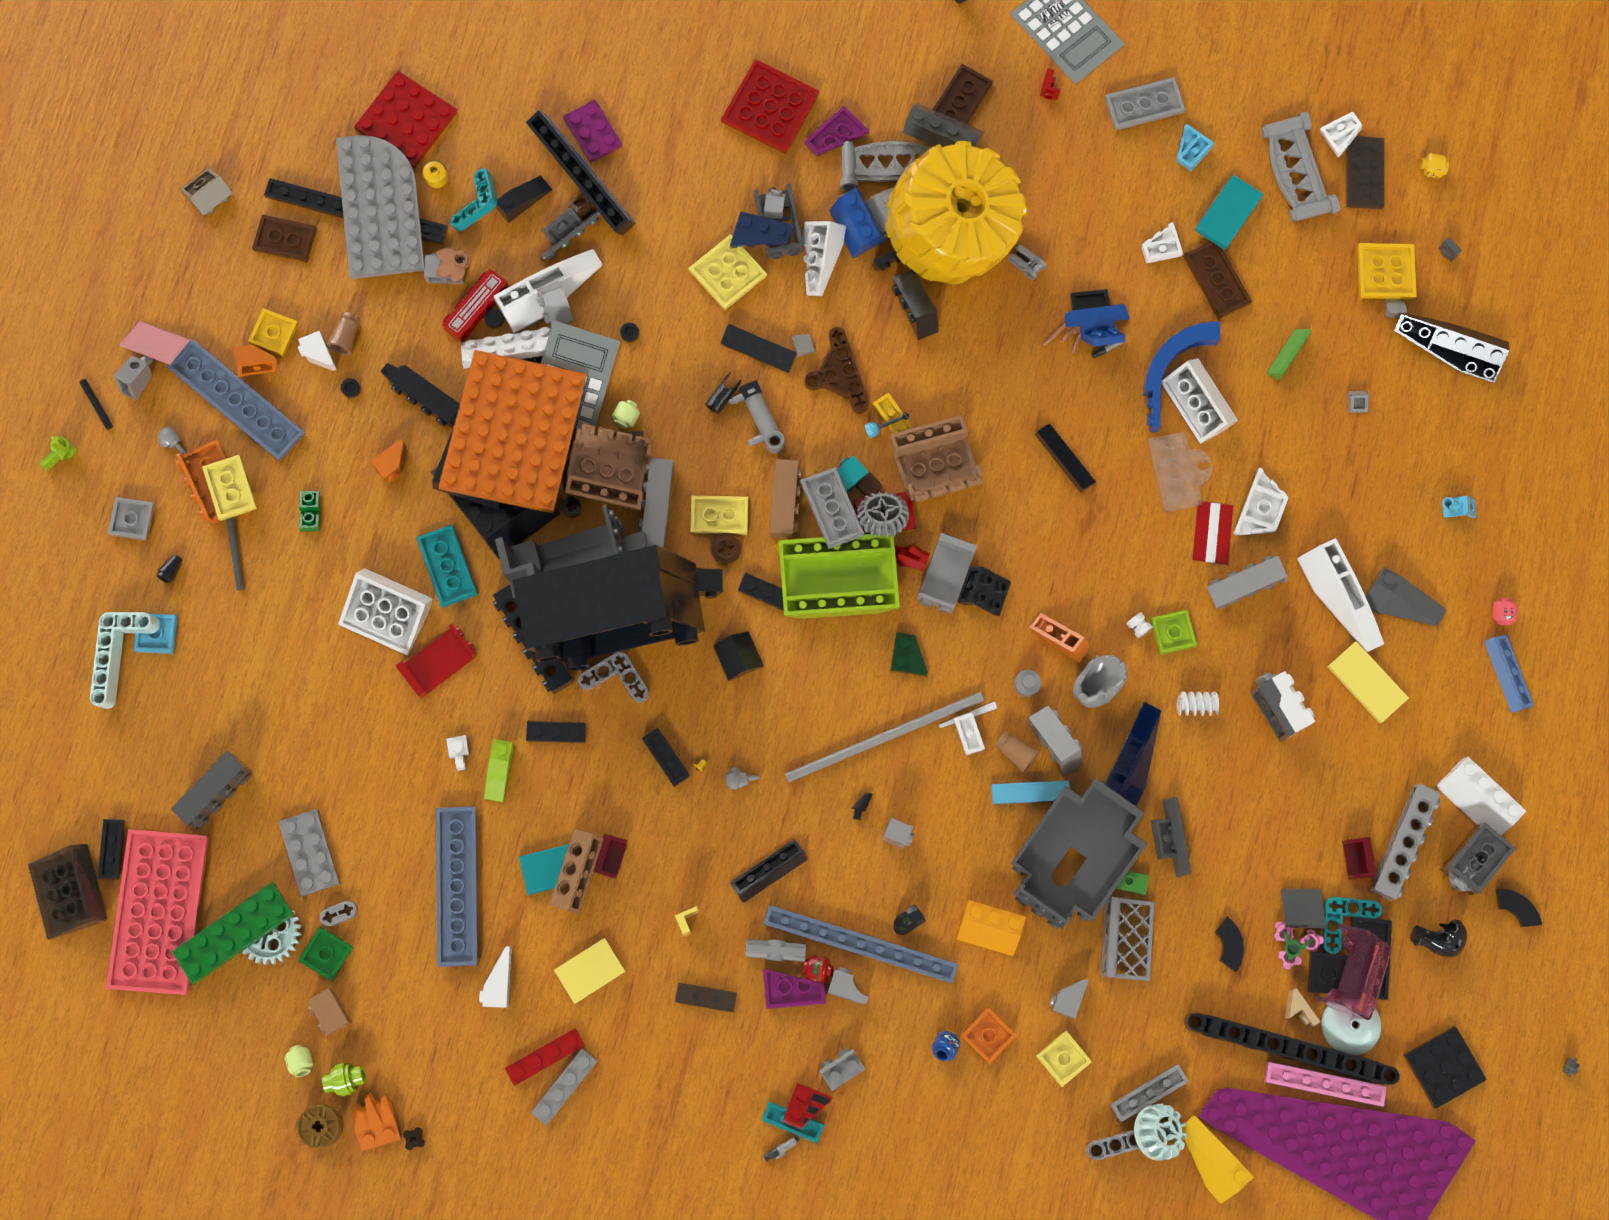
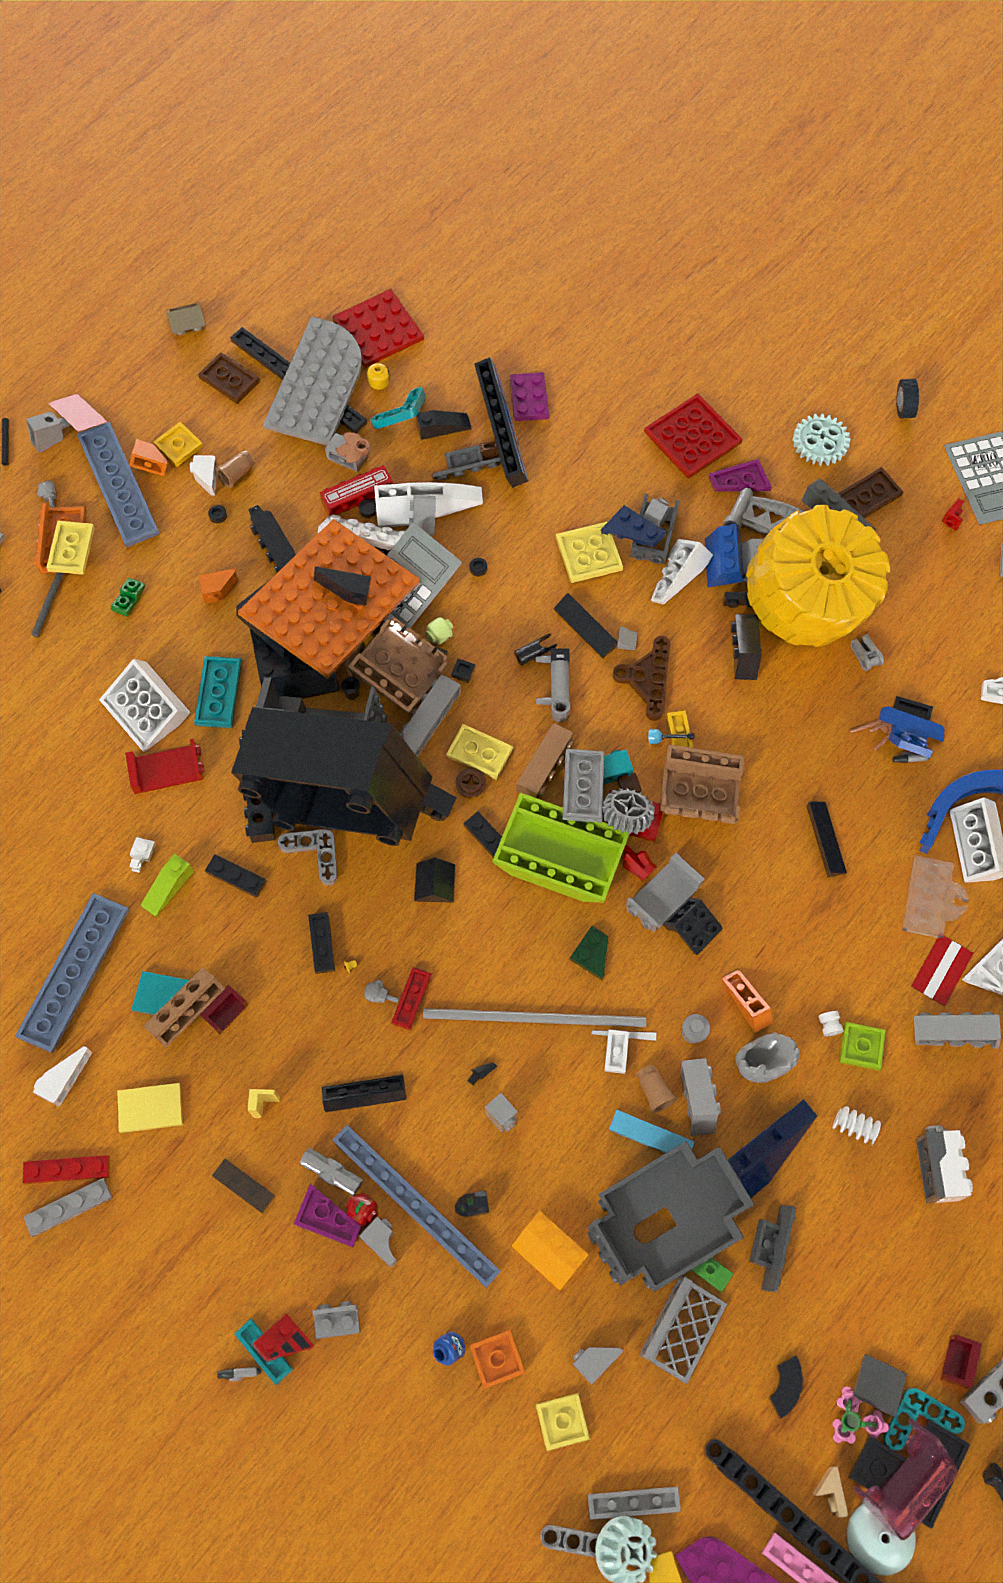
camera: 30 degrees right, 10 degrees down
(527, 415) = (346, 585): none -> black slope
(666, 443) = (463, 670): none -> black plate
(769, 769) = (411, 998): none -> red tile
(892, 44) = (821, 439): none -> light aqua gear

